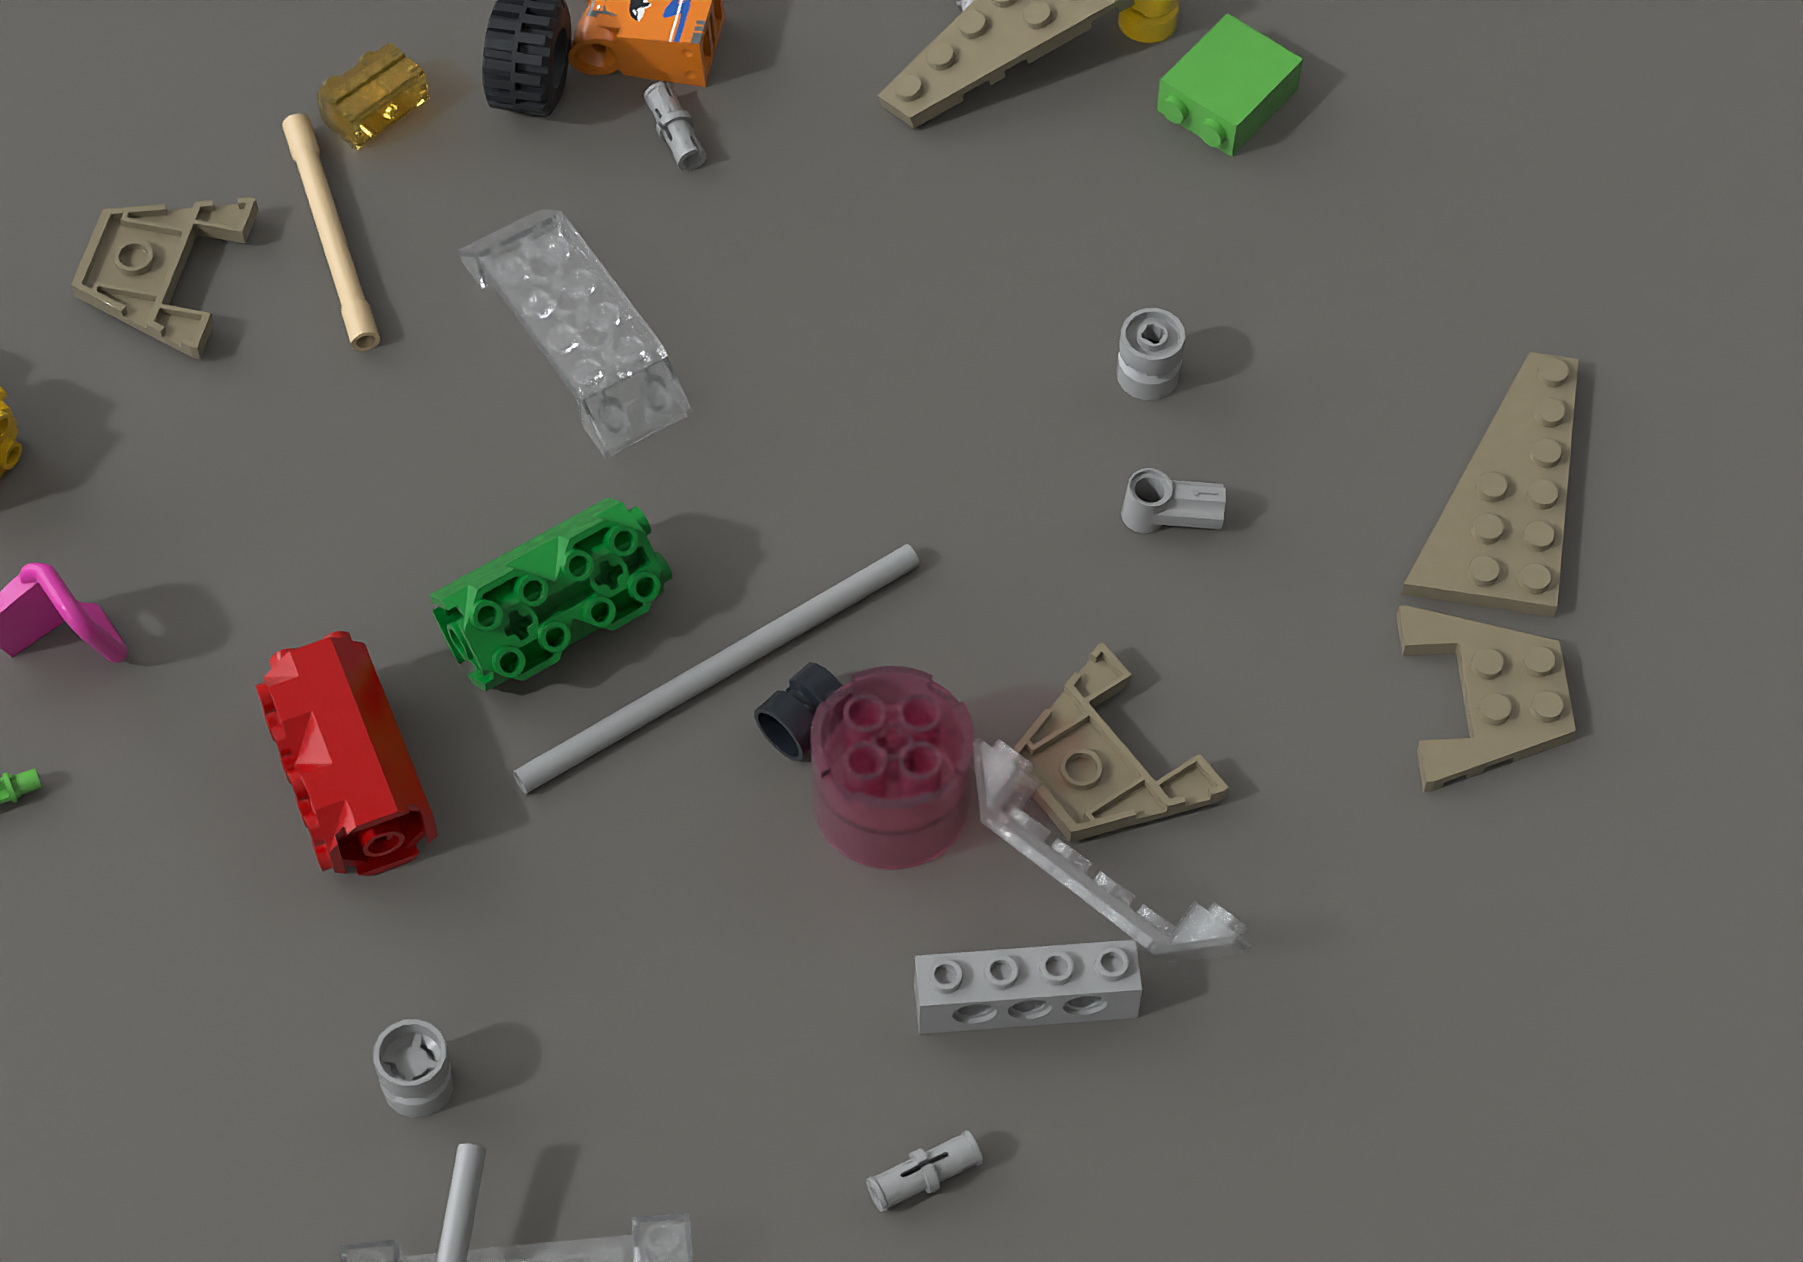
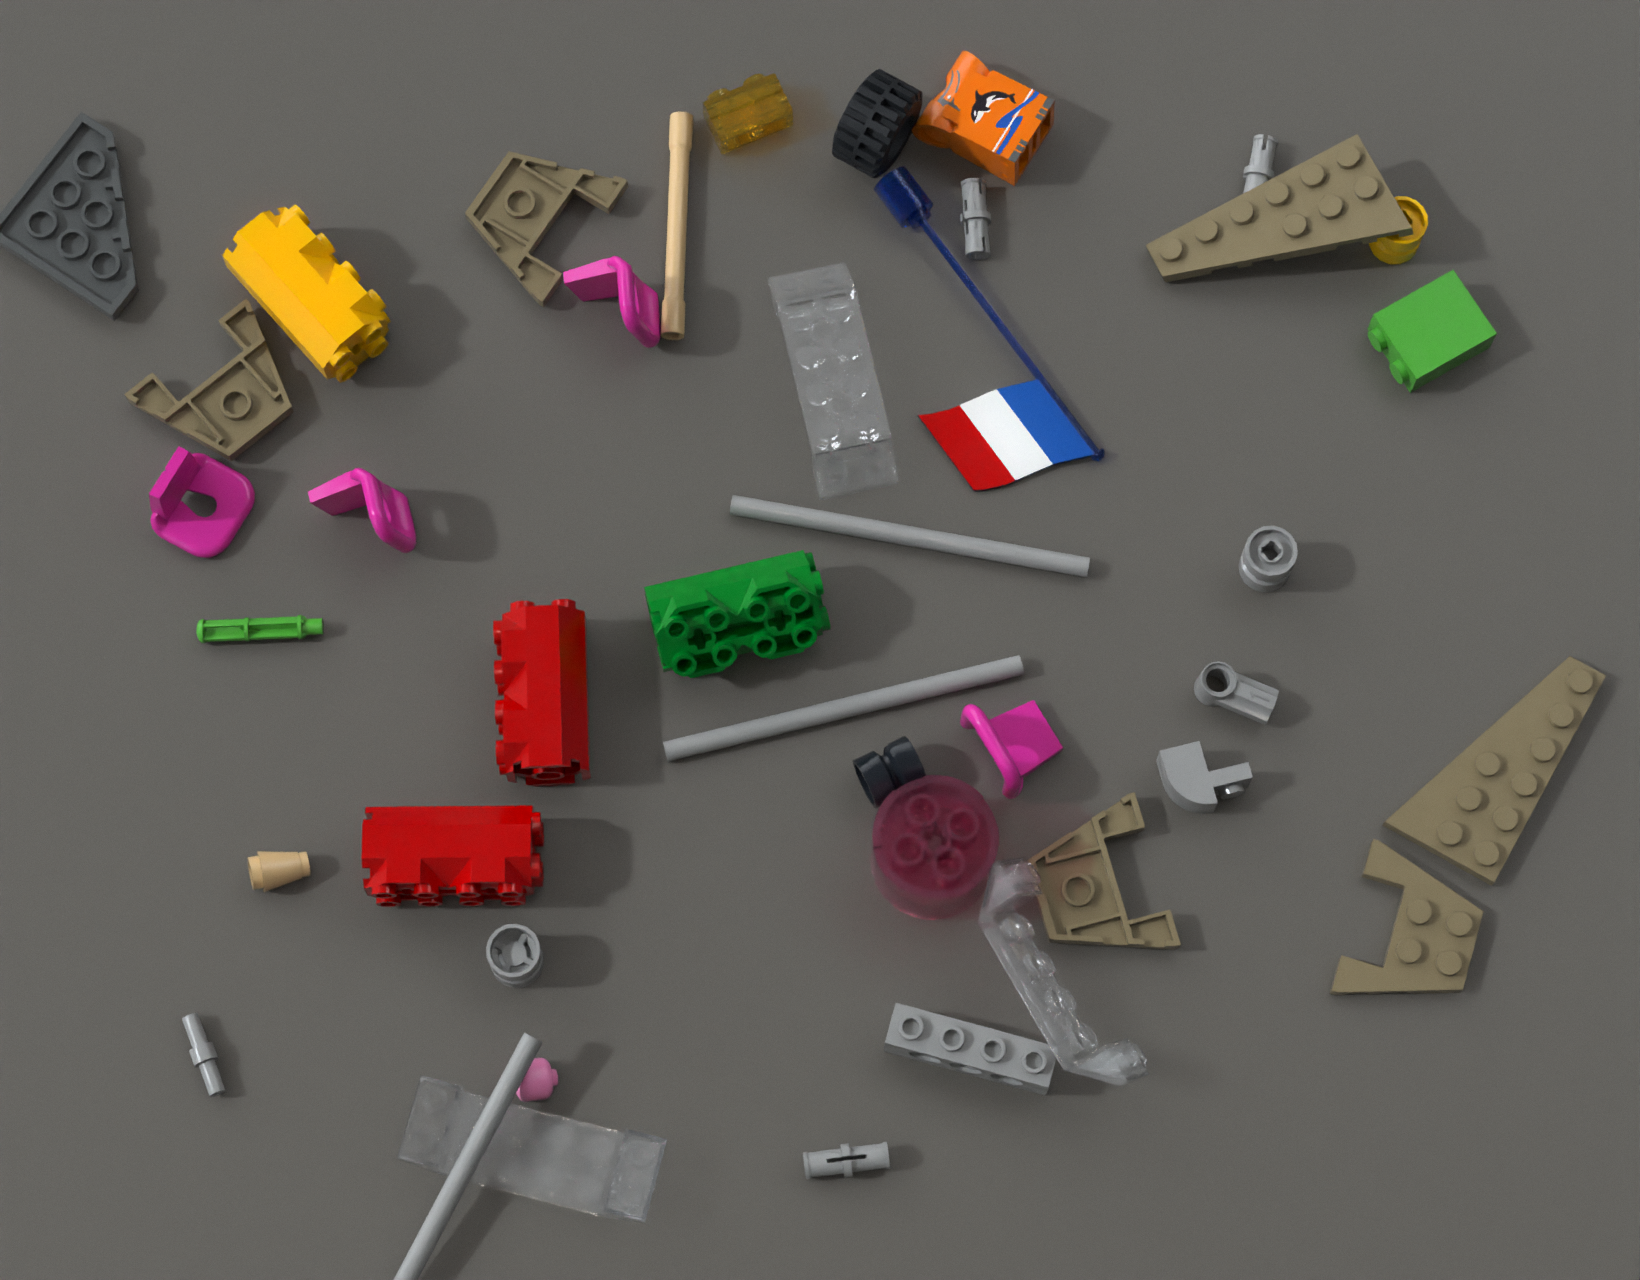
camera: 20 degrees right, 15 degrees up
(67, 1072) = (276, 869): none -> tan cone
(274, 295) = (616, 278): none -> dark pink piece
(296, 967) = (454, 852): none -> red brick
(495, 1213) = (538, 1081): none -> bright pink piece
(724, 462) = (909, 536): none -> light grey piece
(790, 327) = (1007, 429): none -> flag
(939, 633) = (1016, 741): none -> dark pink piece
(1166, 613) = (1190, 782): none -> light grey brick

